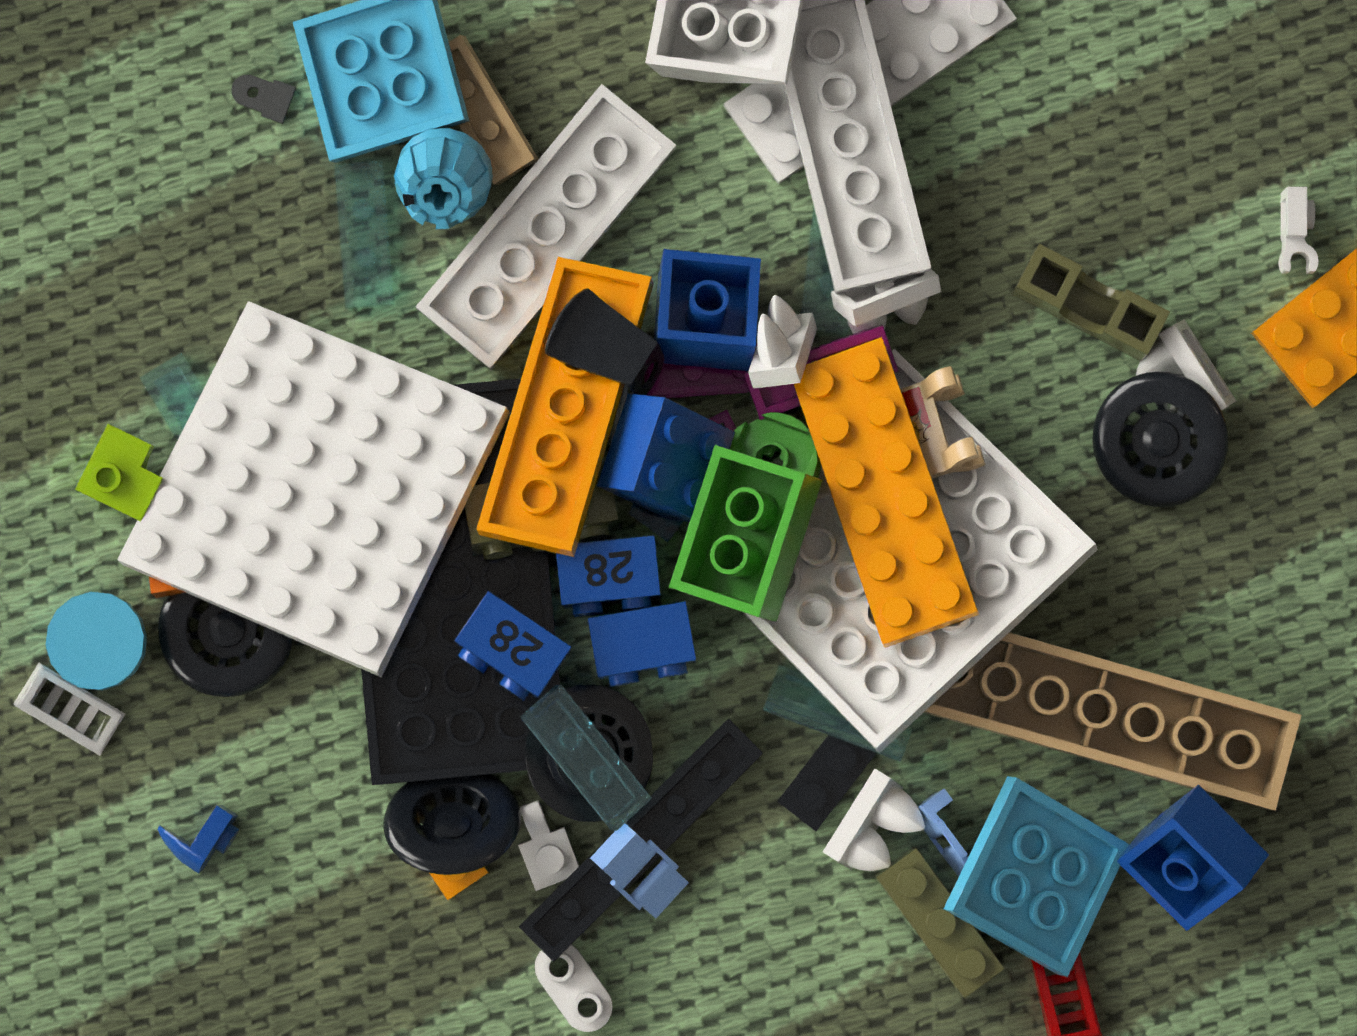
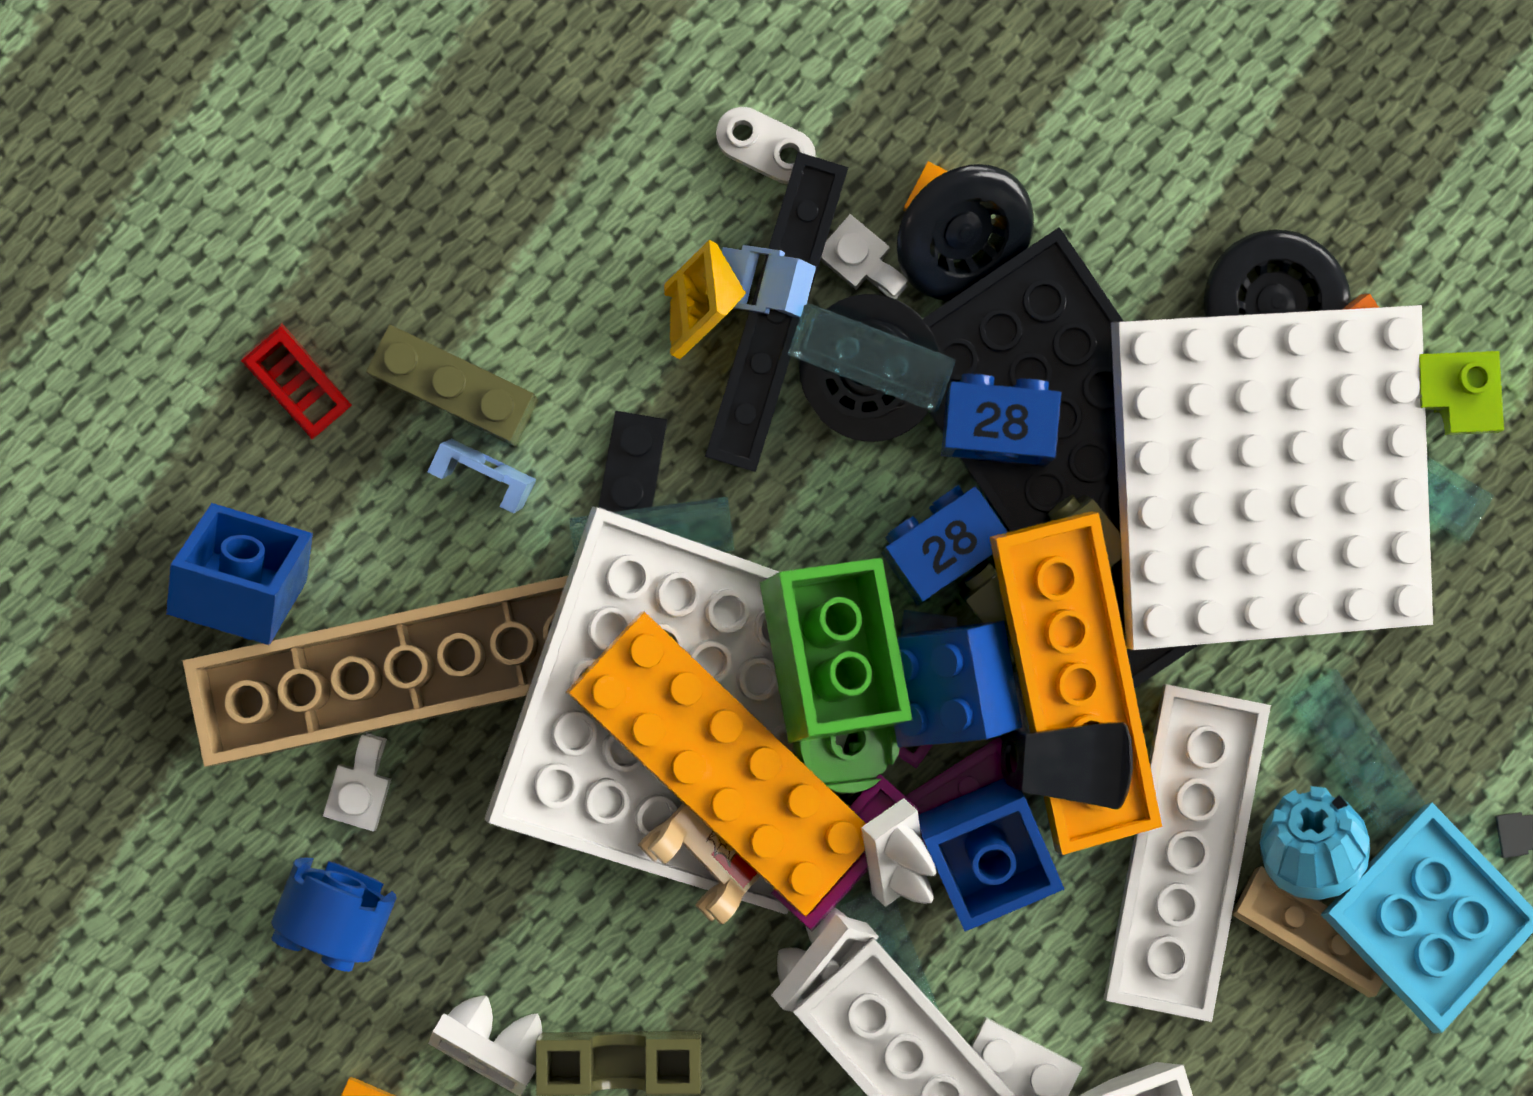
camera: 150 degrees right, 0 degrees up
(33, 687) = (1402, 168): white slope -> none
(96, 641) = (1396, 220): medium azure piece -> none
(215, 835) = (1179, 104): blue plate -> none
(642, 642) = (876, 496): blue brick -> none
(697, 882) = (701, 297): none -> yellow slope
(878, 804) = (569, 466): white tile -> none
(1036, 876) = (381, 477): medium azure plate -> none
(1160, 439) = (481, 965): black wheel -> none
(1188, 632) = (358, 792): none -> white plate
(1259, 543) = (332, 913): none -> blue brick

